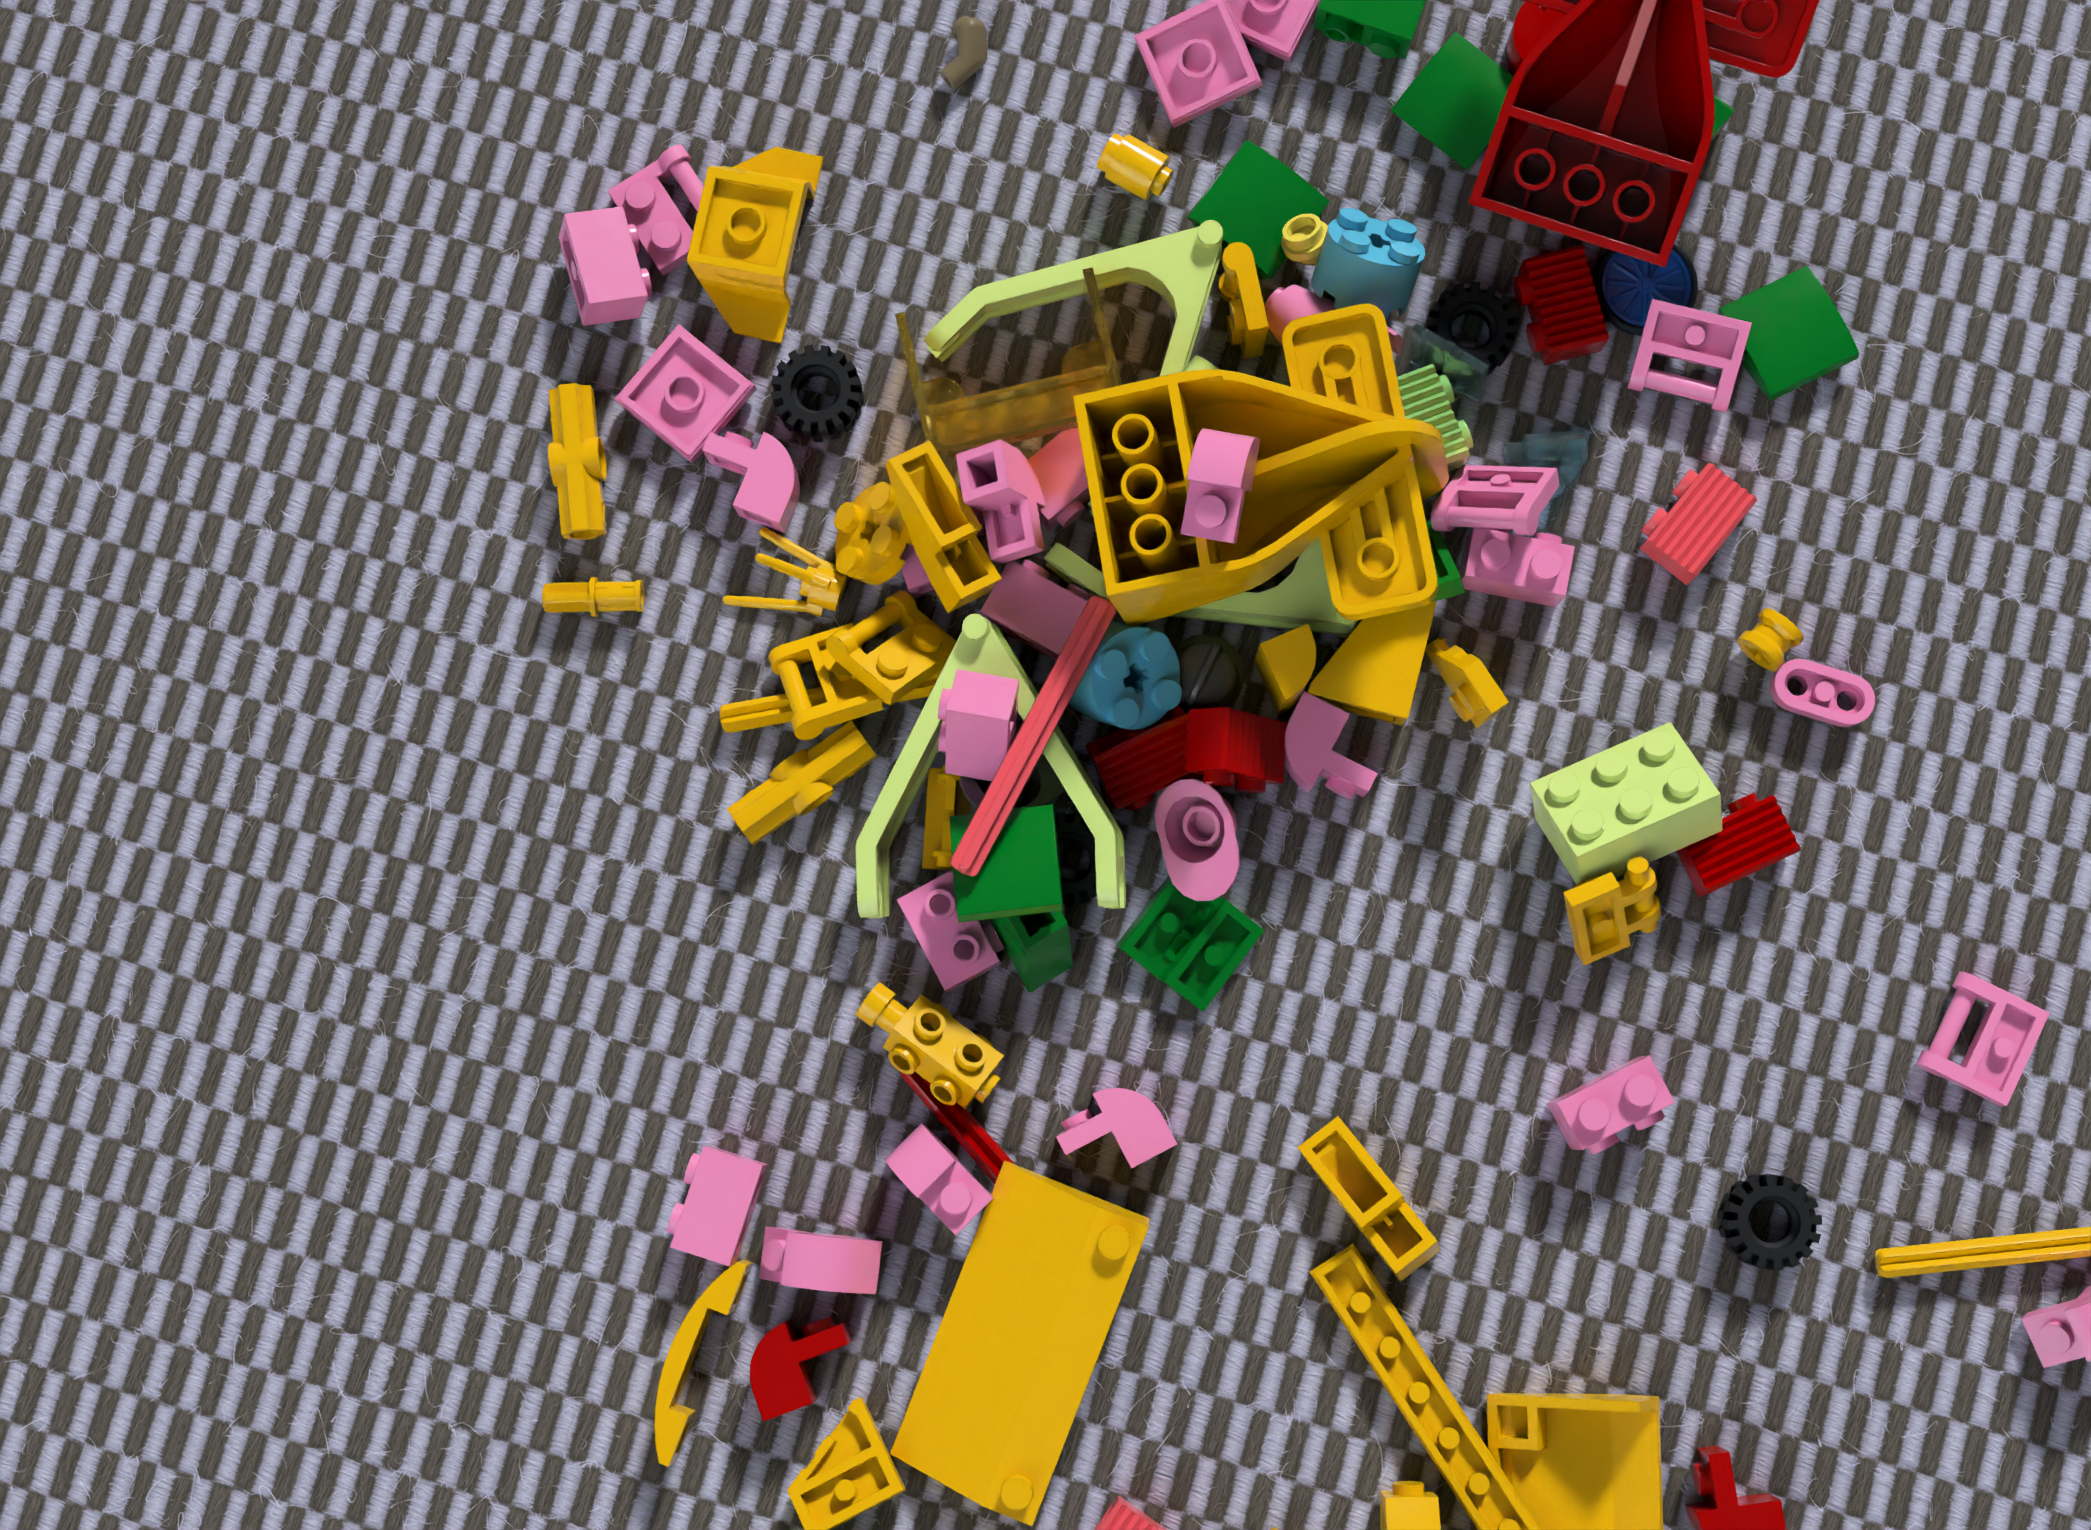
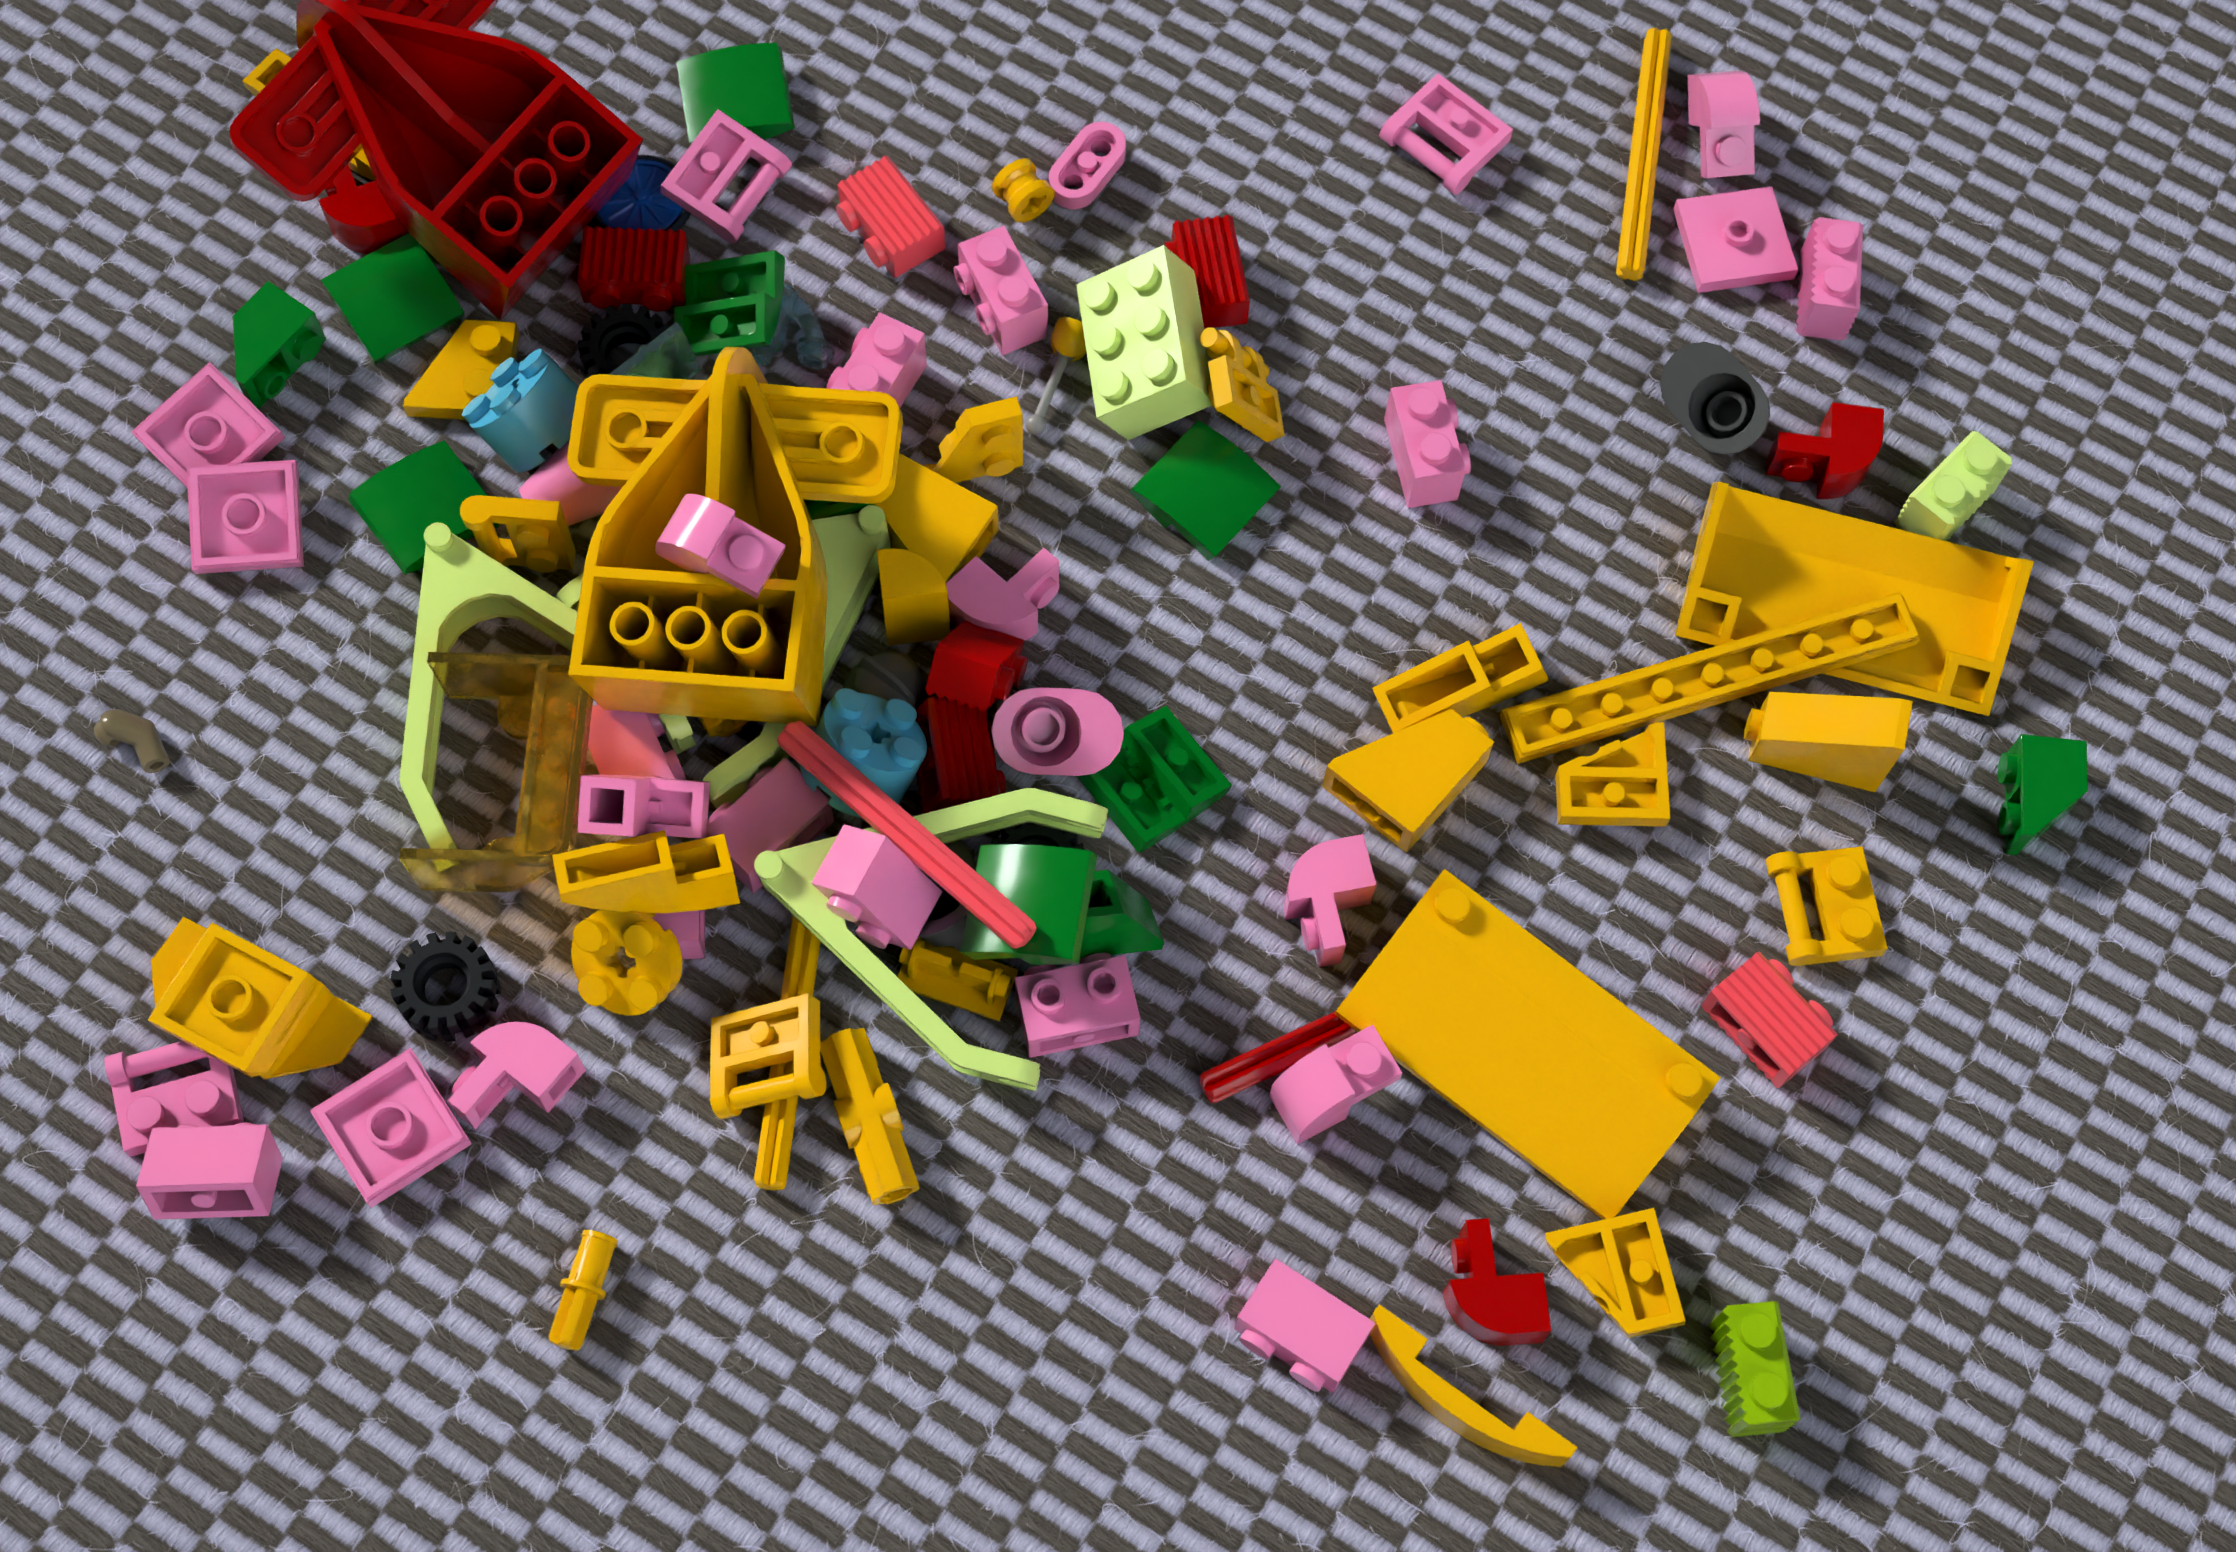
camera: 85 degrees left, 15 degrees down
(577, 461) = (421, 1265): yellow piece -> none
(820, 583) = (656, 1040): yellow plant -> none
(820, 1261) = (1390, 1234): bright pink brick -> none
(902, 660) = (772, 966): yellow plate -> none
(933, 1046) = (1193, 1052): yellow brick -> none
(1135, 166) = (331, 604): yellow brick -> none
(1260, 1176) = (1410, 774): none -> yellow slope
(1303, 238) = (476, 465): light yellow plate -> none
(1310, 1370) = (1617, 784): none -> yellow wing
(1410, 192) = (462, 369): none -> yellow wing
(1495, 498) = (810, 351): bright pink plate -> none
(1499, 905) = (1205, 489): none -> green slope
(1547, 406) = (732, 302): none -> green slope
(1611, 732) = (1068, 345): none -> hinge
(1647, 655) = (1002, 290): none -> bright pink brick
(1748, 1379) = (1714, 398): none -> dark grey piece
(1801, 1221) = (1577, 324): black tyre -> none
(1935, 1471) = (1830, 279): none -> bright pink brick
(1958, 1363) = (1735, 239): none -> bright pink plate

